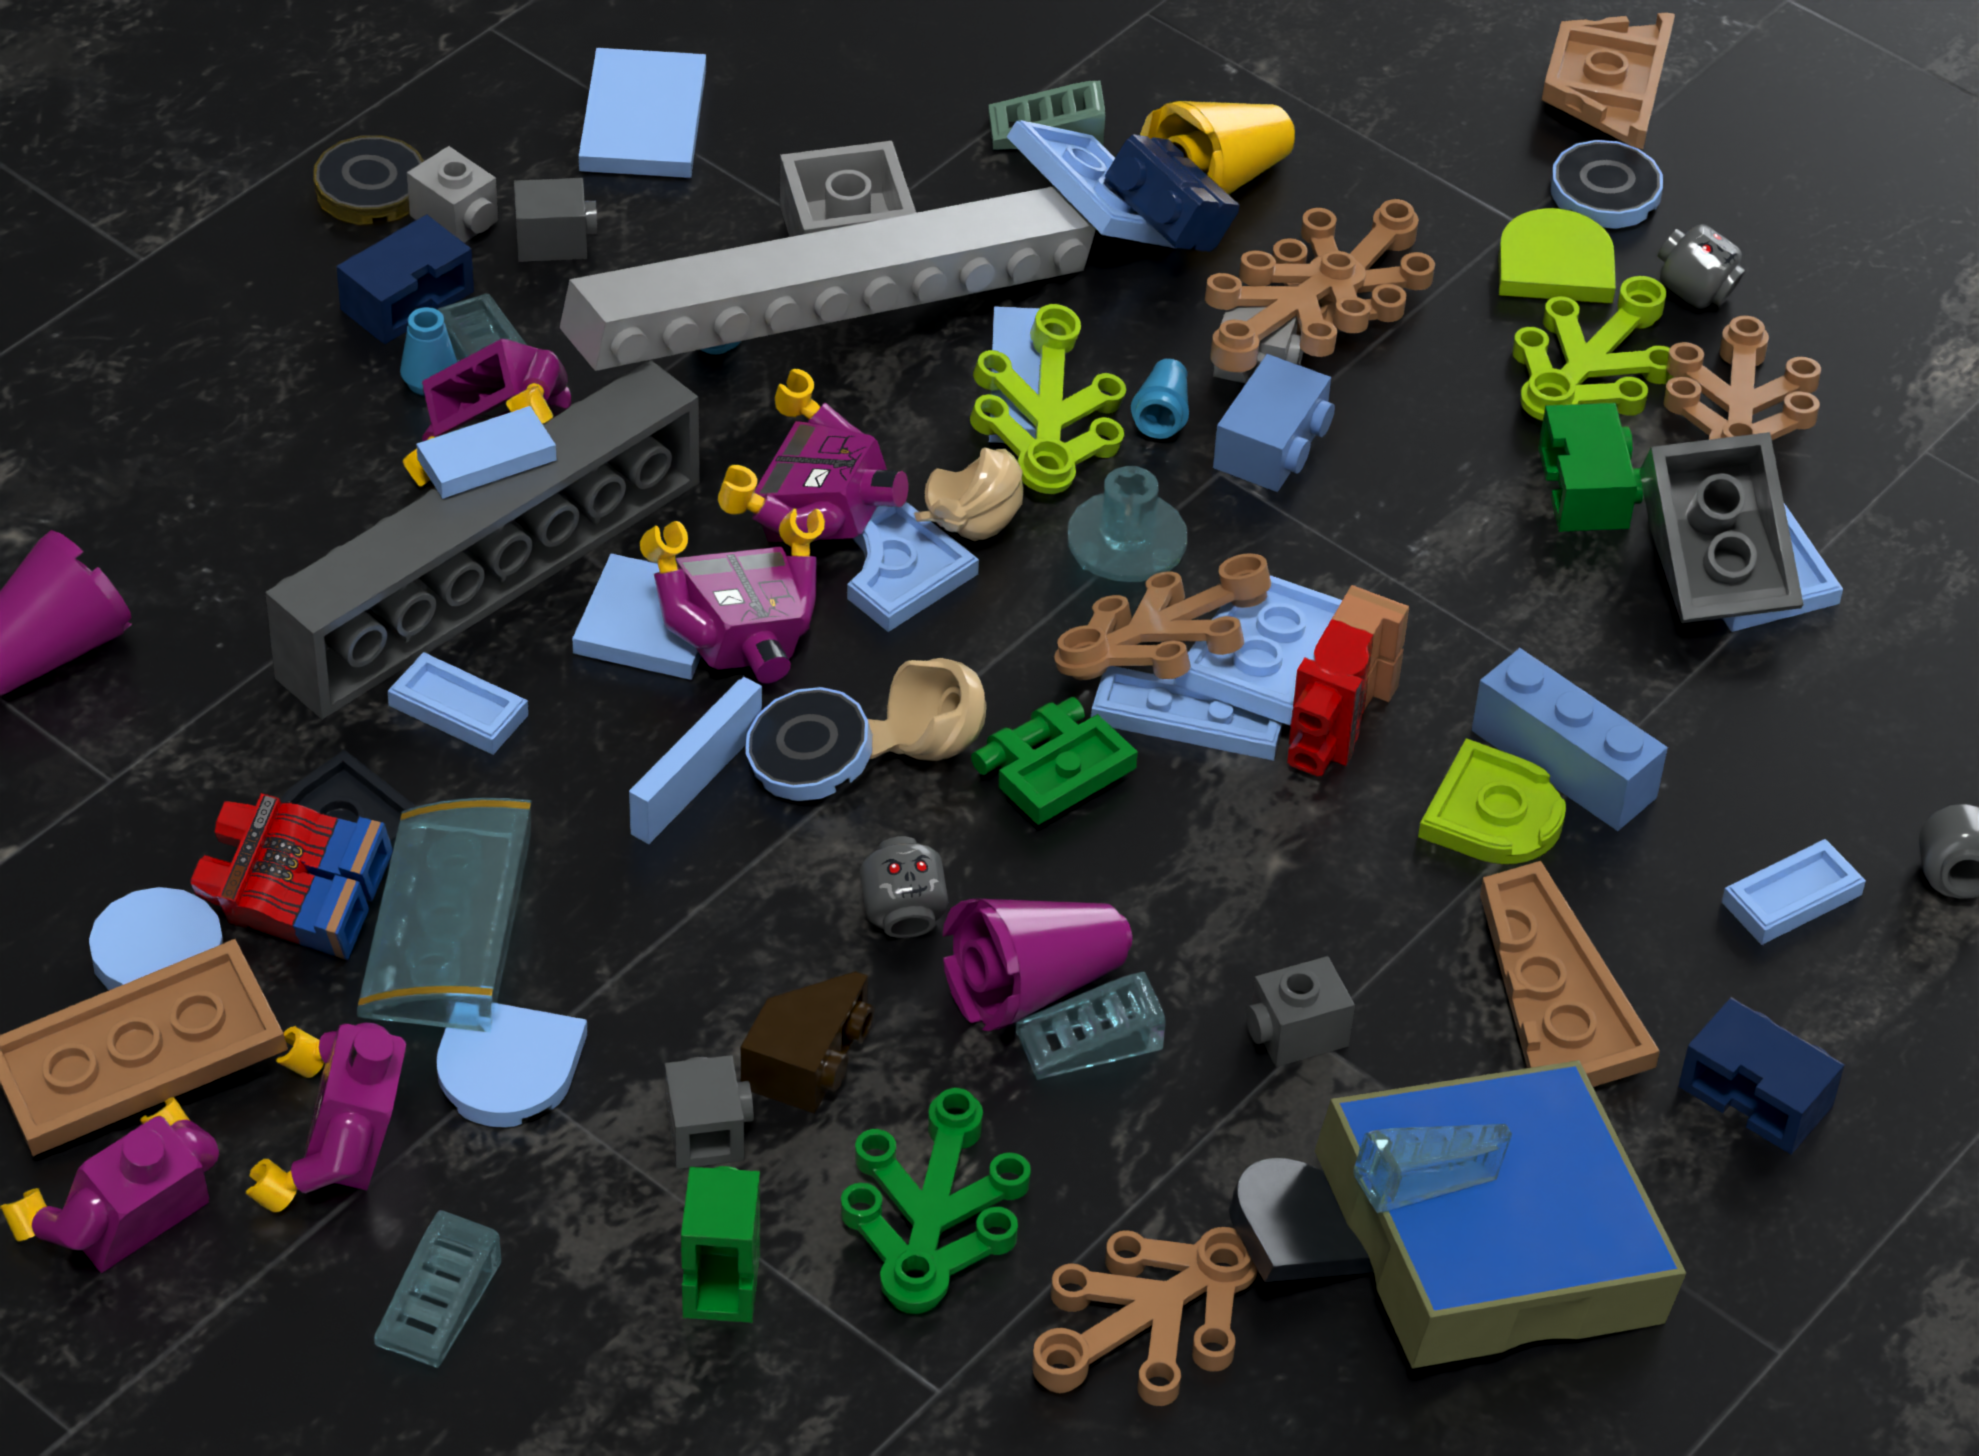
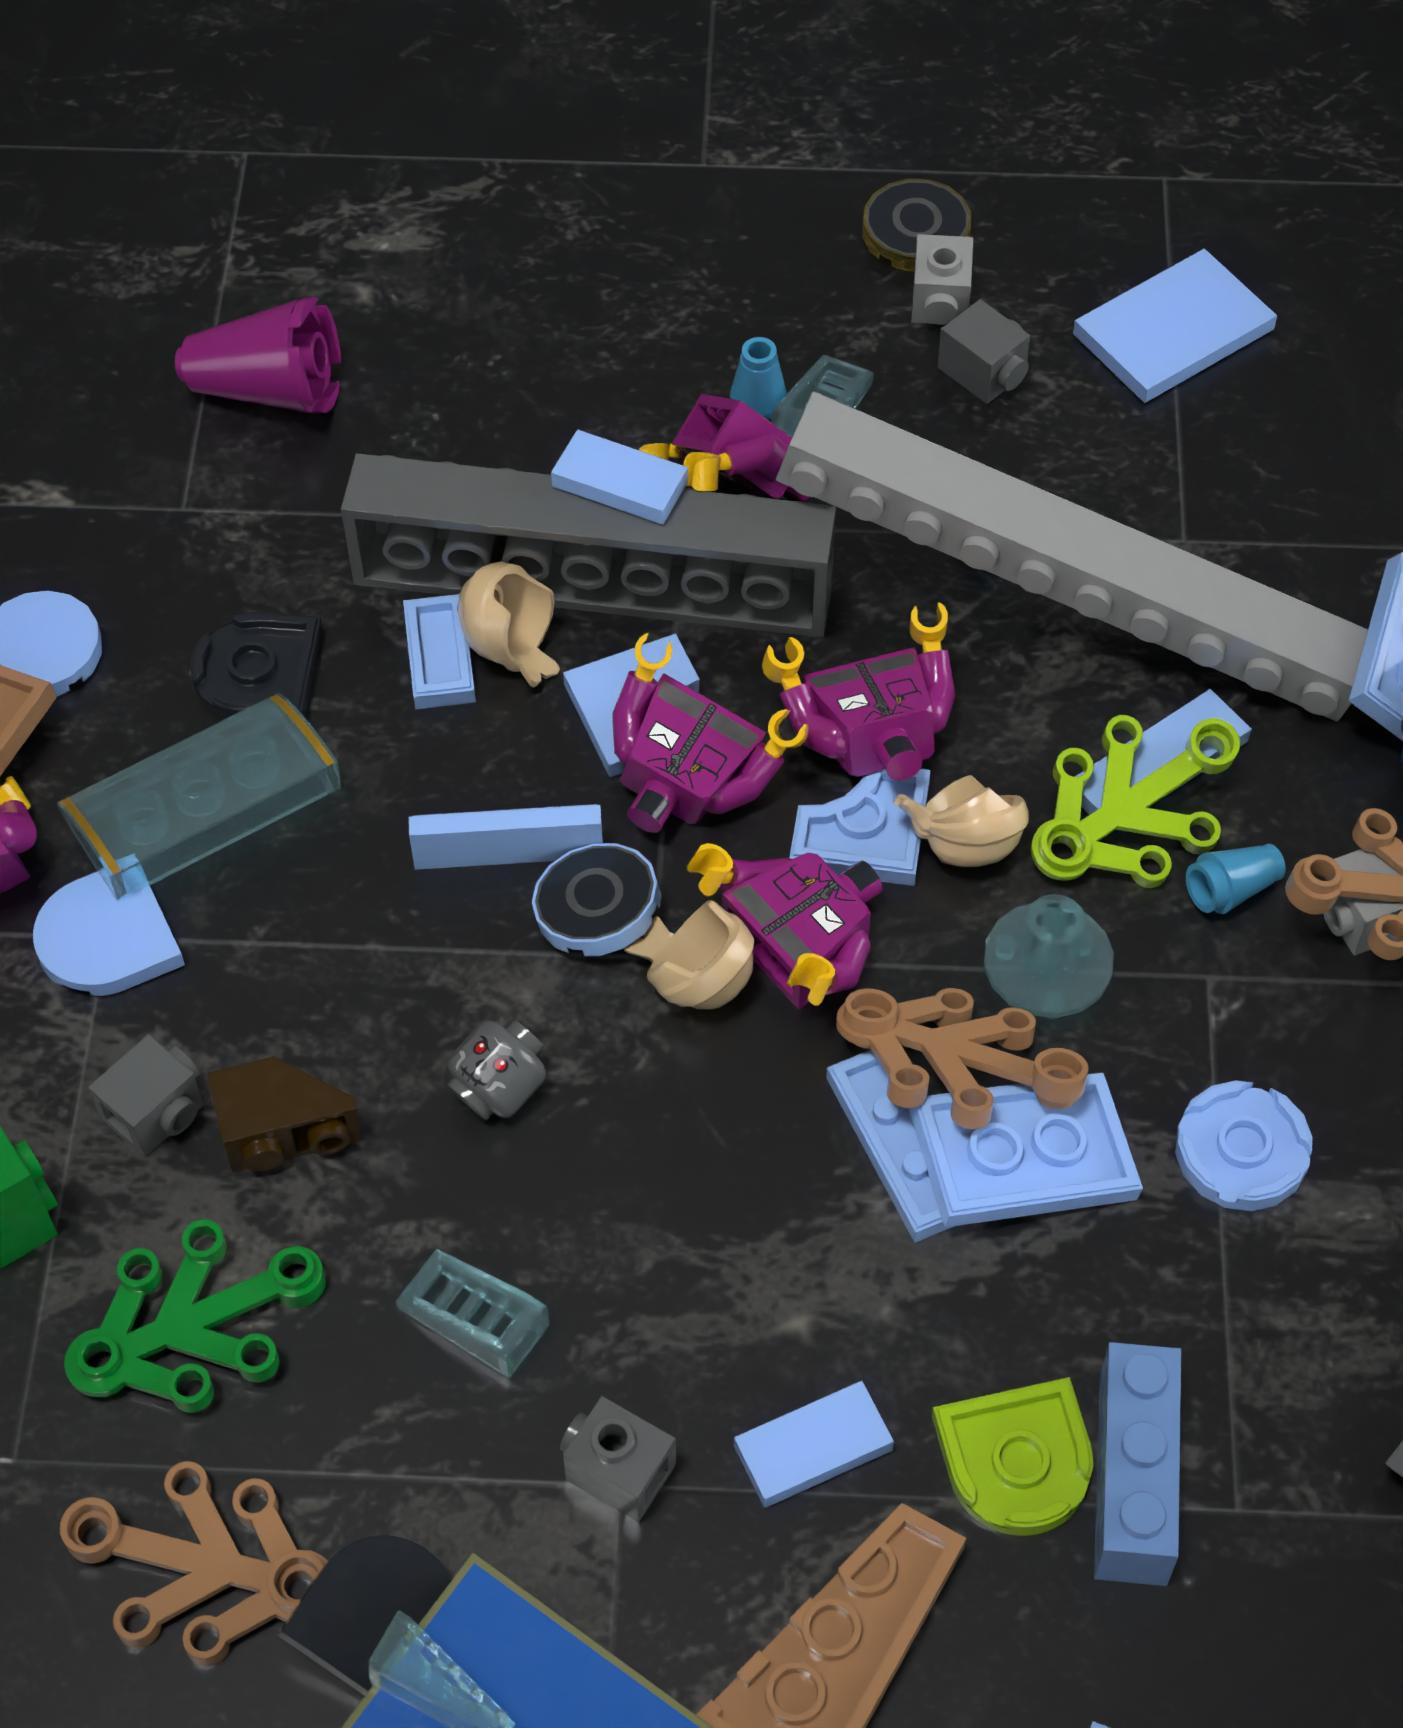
camera: 55 degrees right, 10 degrees up
(295, 872) = (153, 671): hips -> none
(403, 273) = (826, 313): dark blue brick -> none
(490, 635) = (507, 618): none -> tan hat
(842, 187) = (1200, 503): light grey brick -> none
(967, 627) = (802, 917): none -> magenta torso
(1028, 954) = (498, 1212): magenta cone -> none
(1064, 769) = (742, 1094): green plate -> none
(1273, 423) = (1288, 974): medium blue brick -> none
(1350, 665) = (1012, 1233): red hips -> none
(1374, 540) = (1243, 1146): none -> light blue tile
(1384, 907) = (813, 1444): none -> light blue tile

